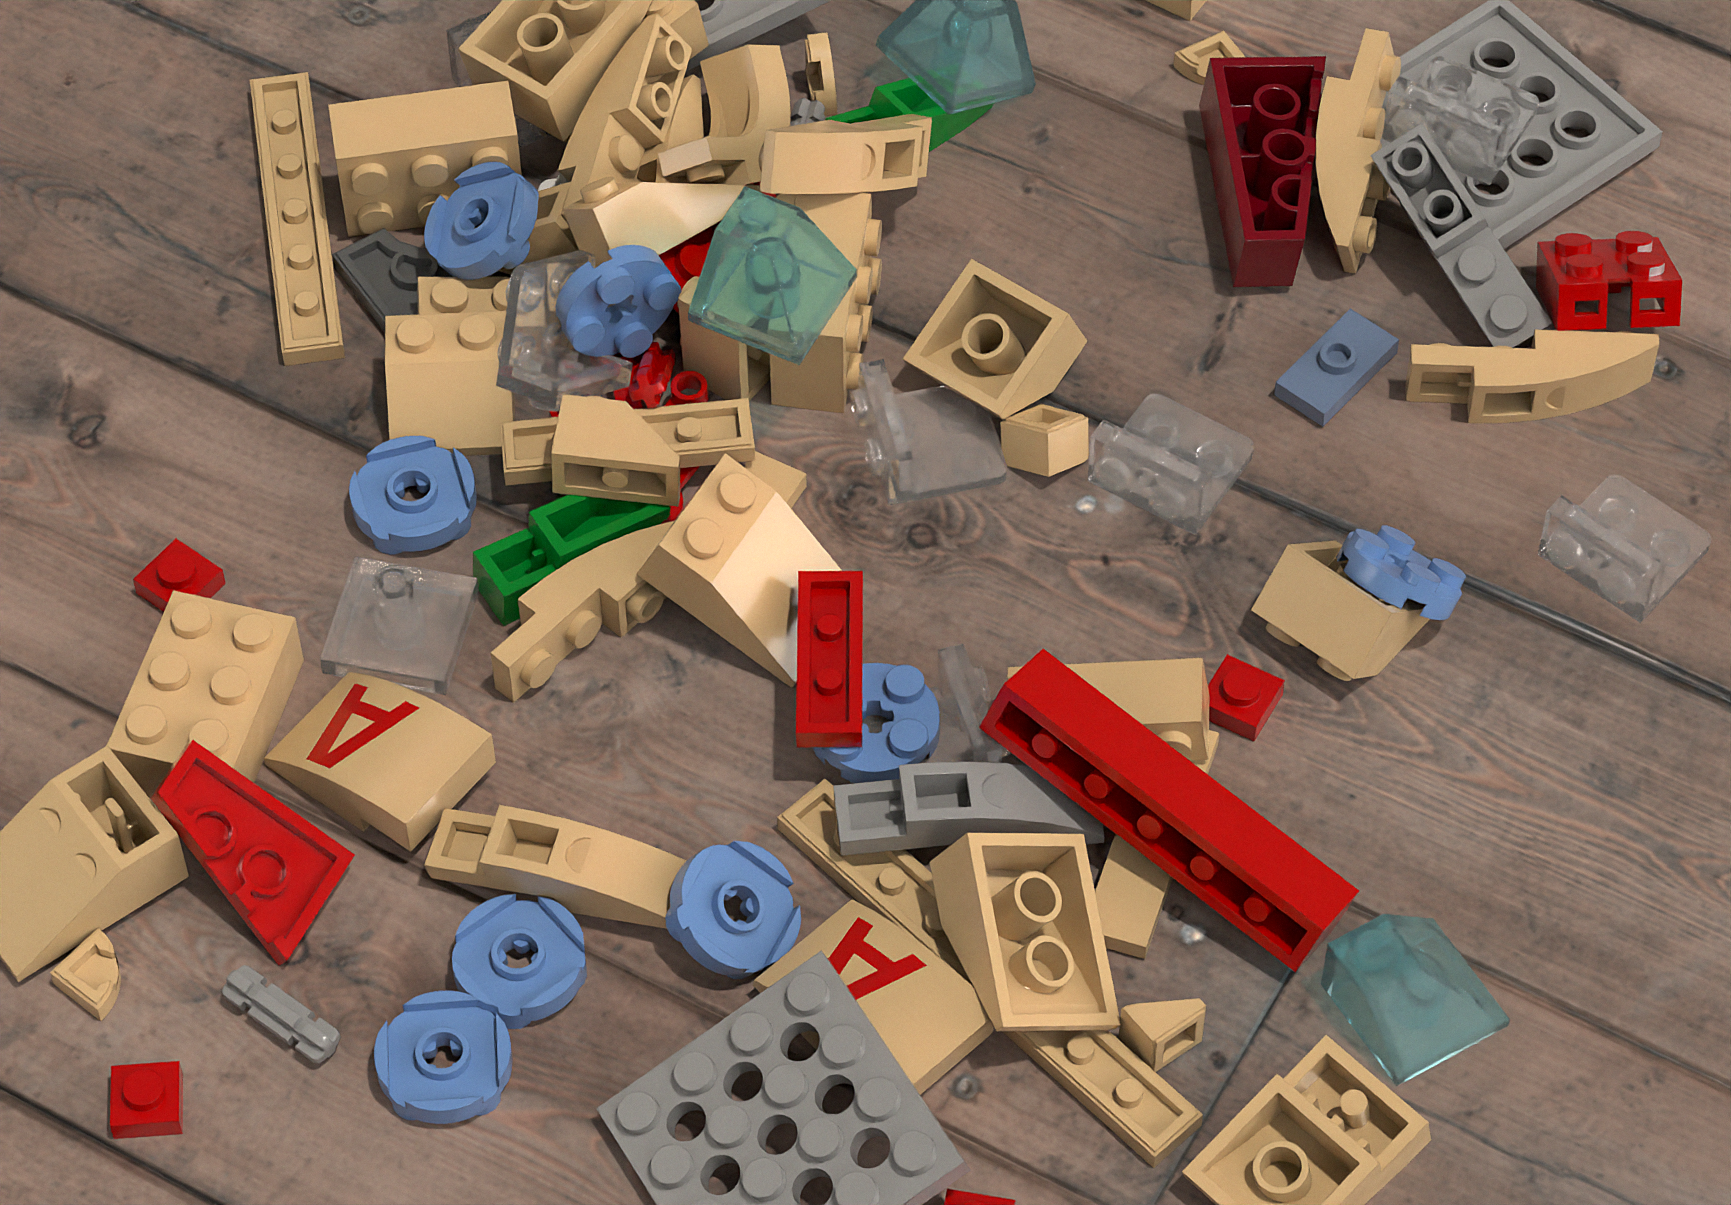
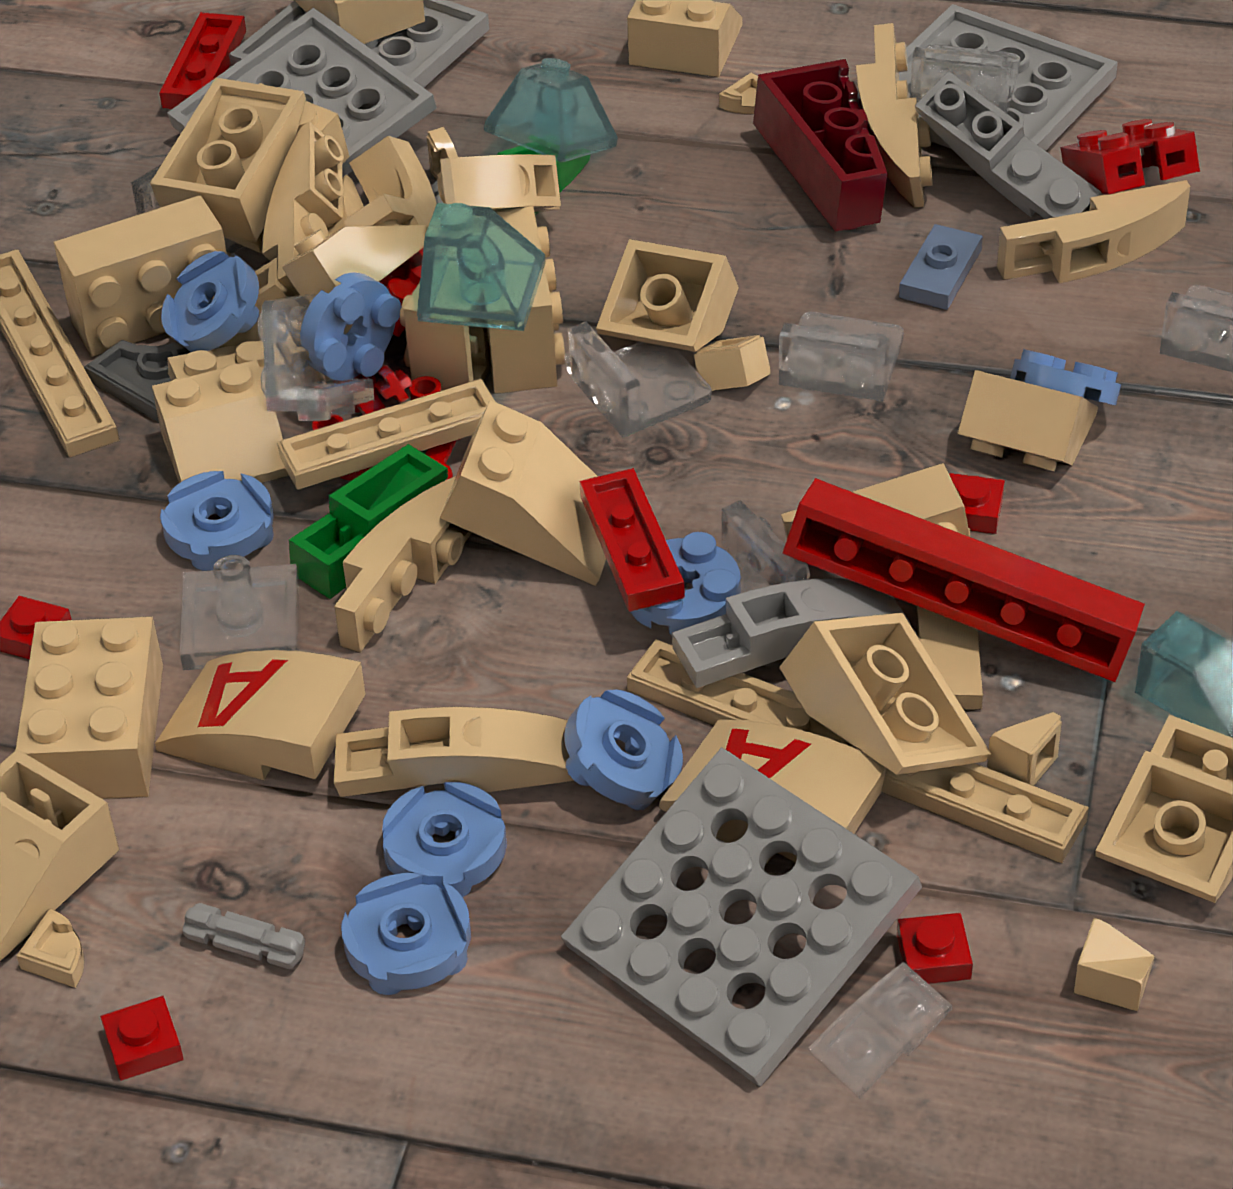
camera: 15 degrees left, 10 degrees down
(252, 846) = (174, 802): red wing -> none
(611, 454) = (390, 433): tan slope -> none

